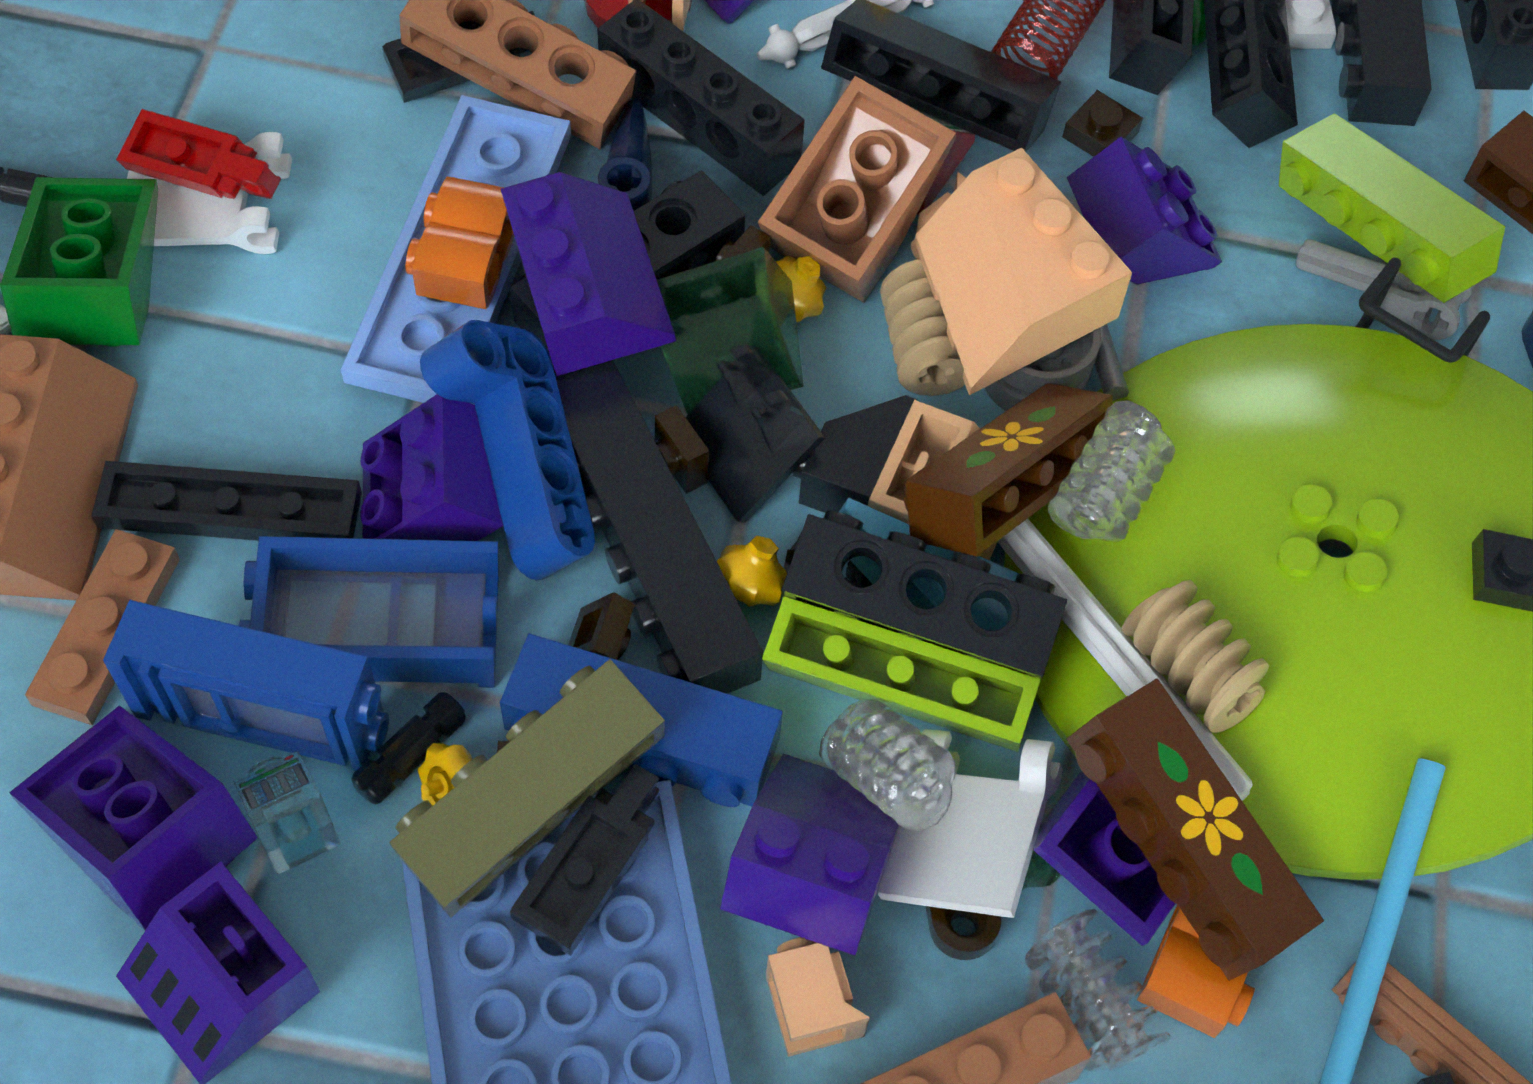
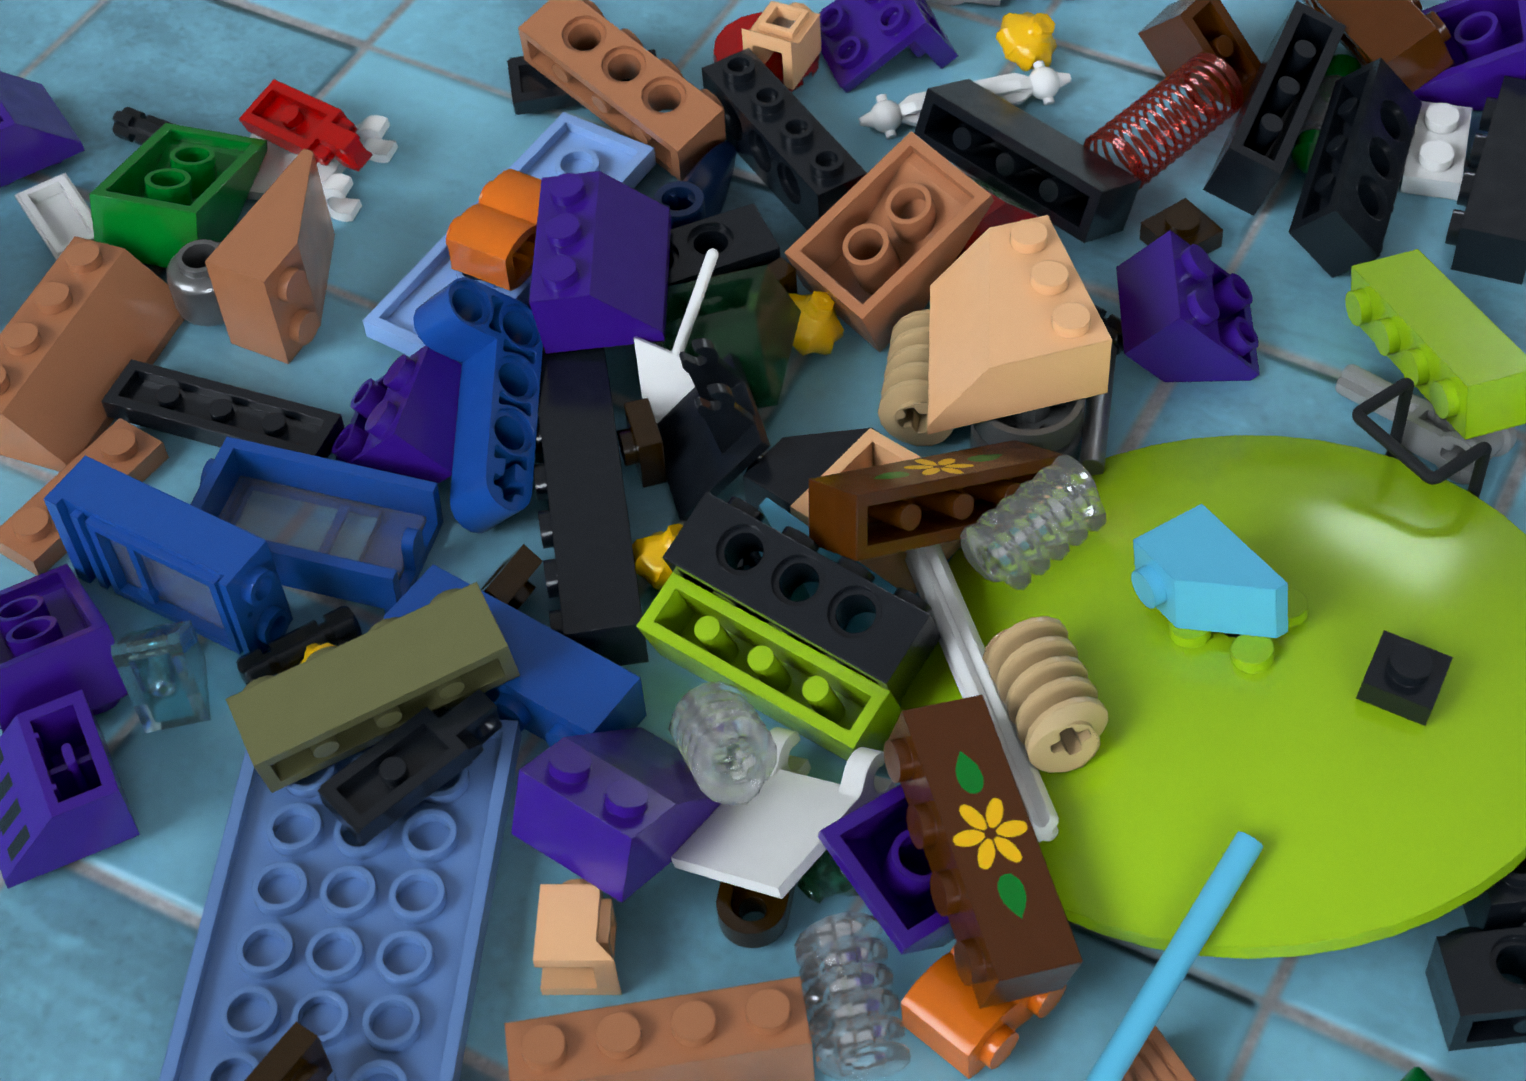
camera: 25 degrees right, 10 degrees down
(158, 358) = (192, 285): none -> flat silver head
(228, 331) = (277, 265): none -> nougat slope
(688, 376) = (660, 369): none -> white piece
(1313, 508) = (1208, 578): none -> medium azure slope

